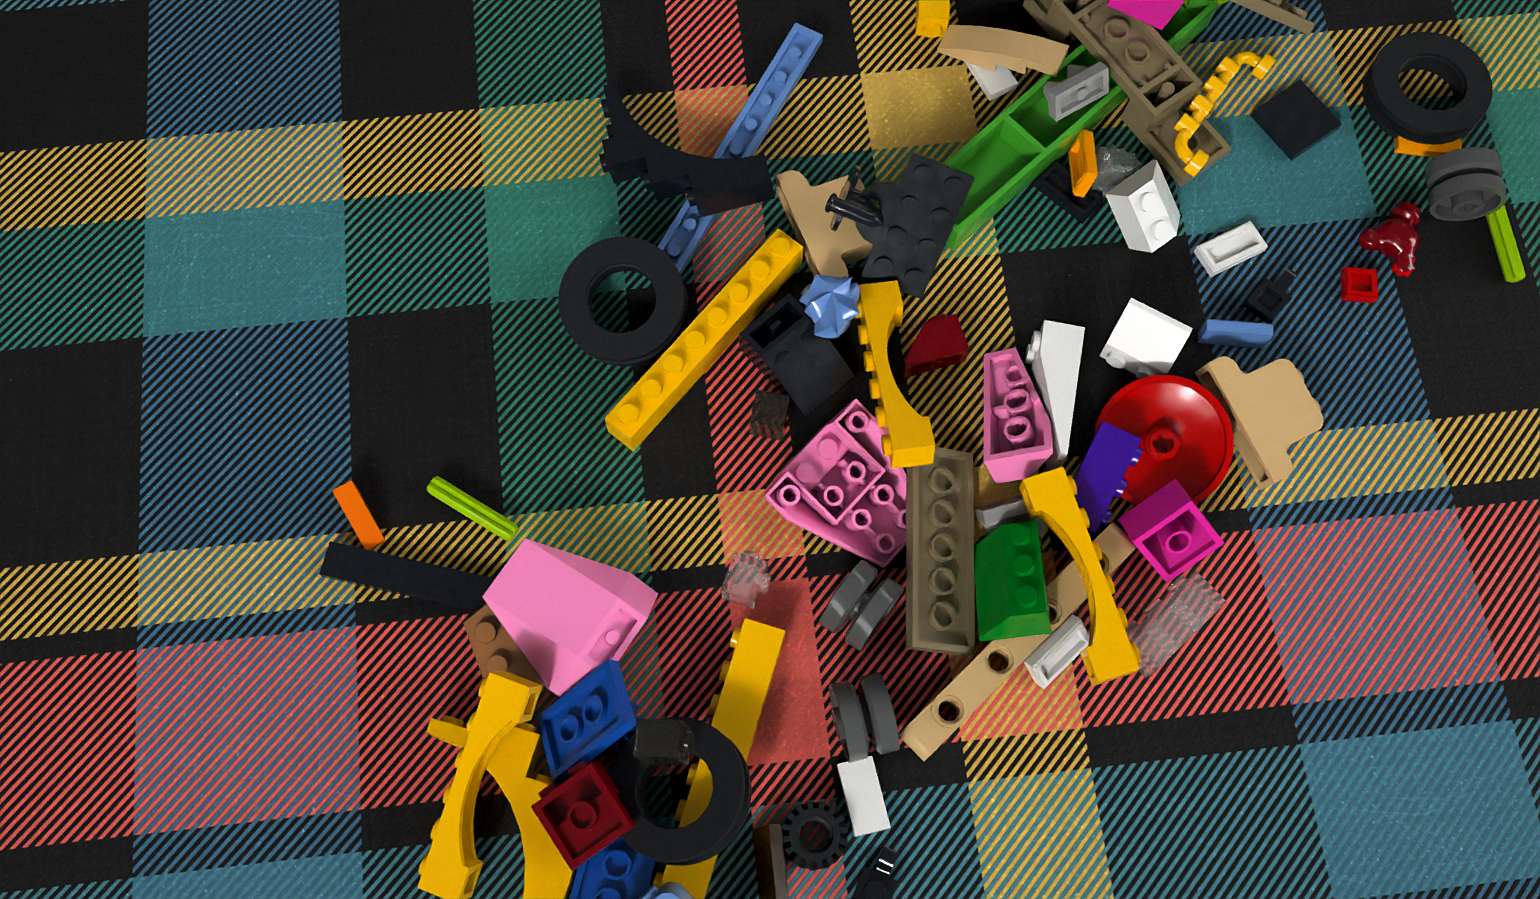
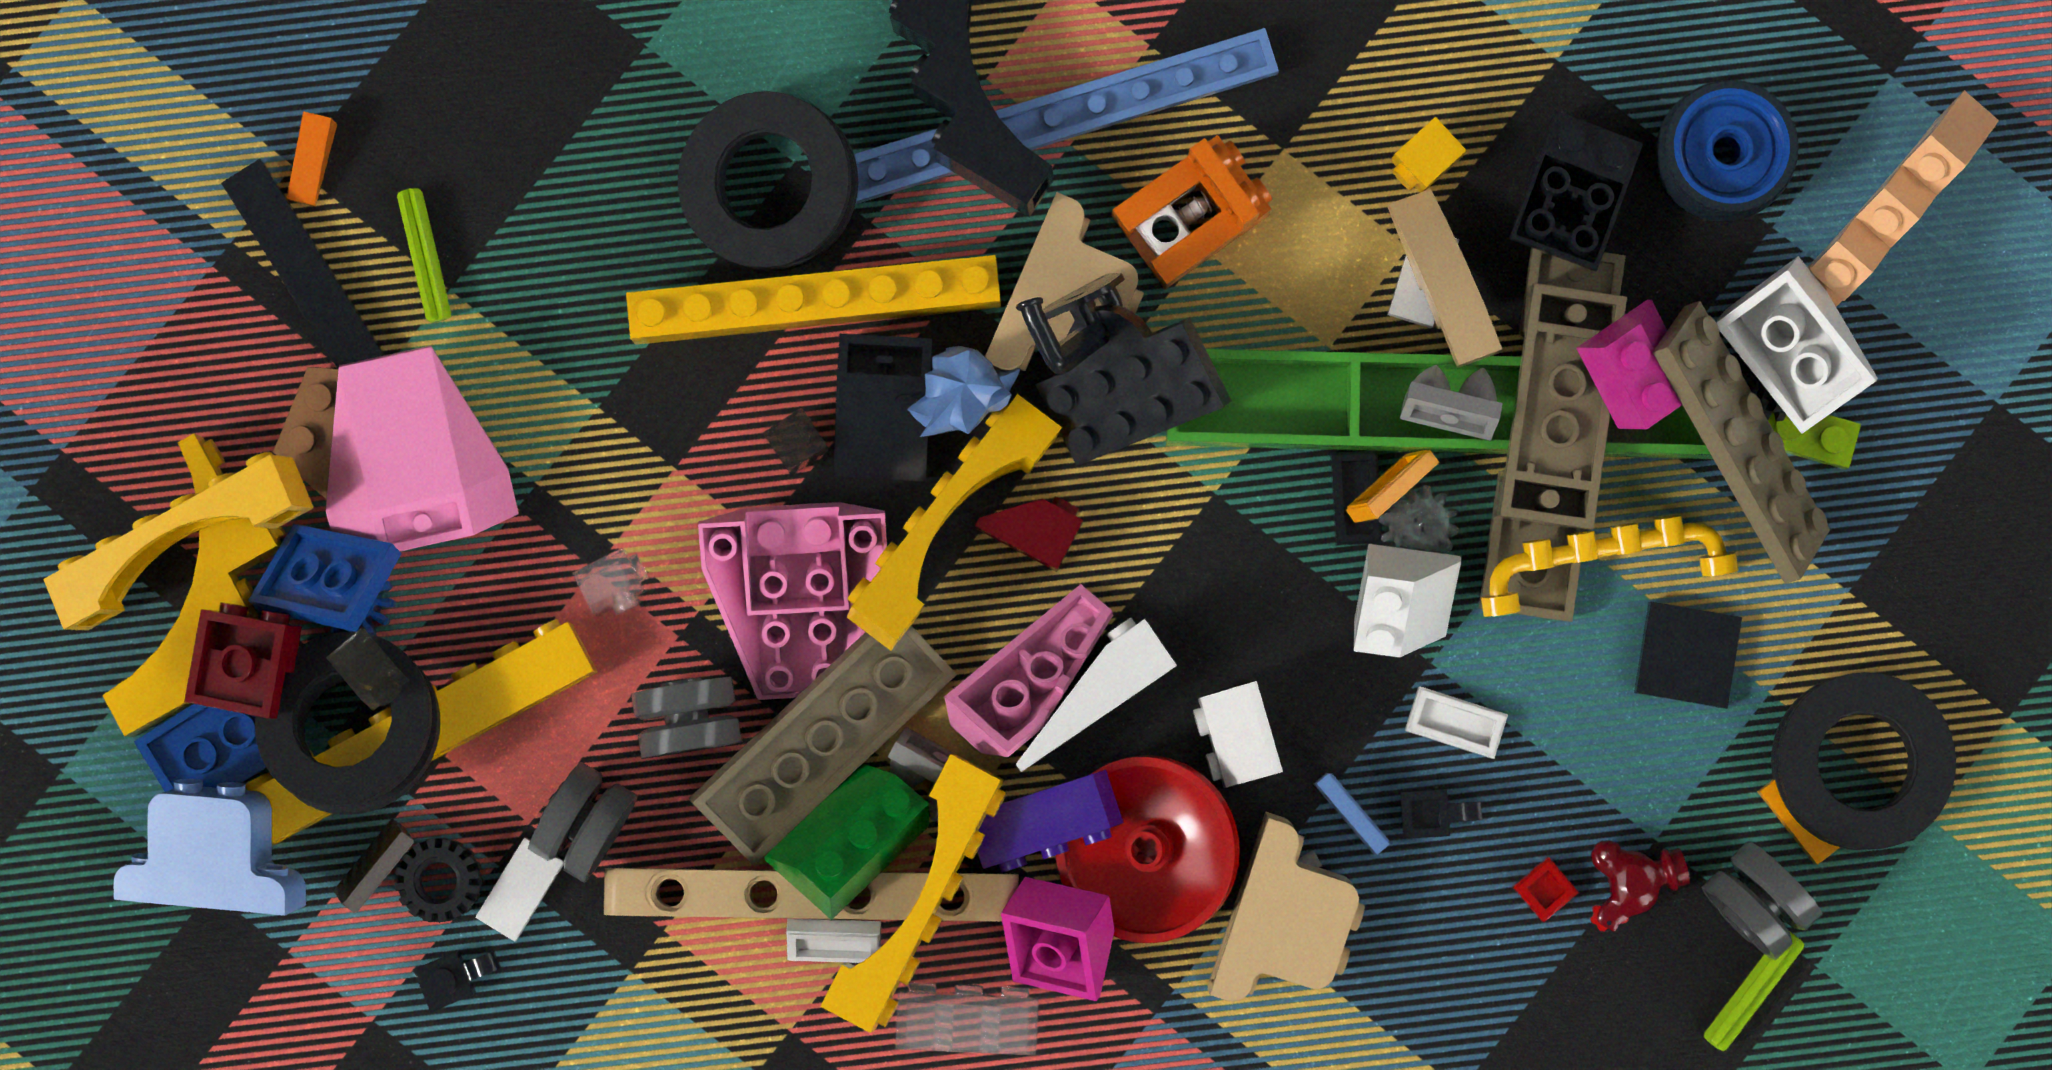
camera: 45 degrees right, 15 degrees up
(853, 106) = (1225, 186): none -> orange brick

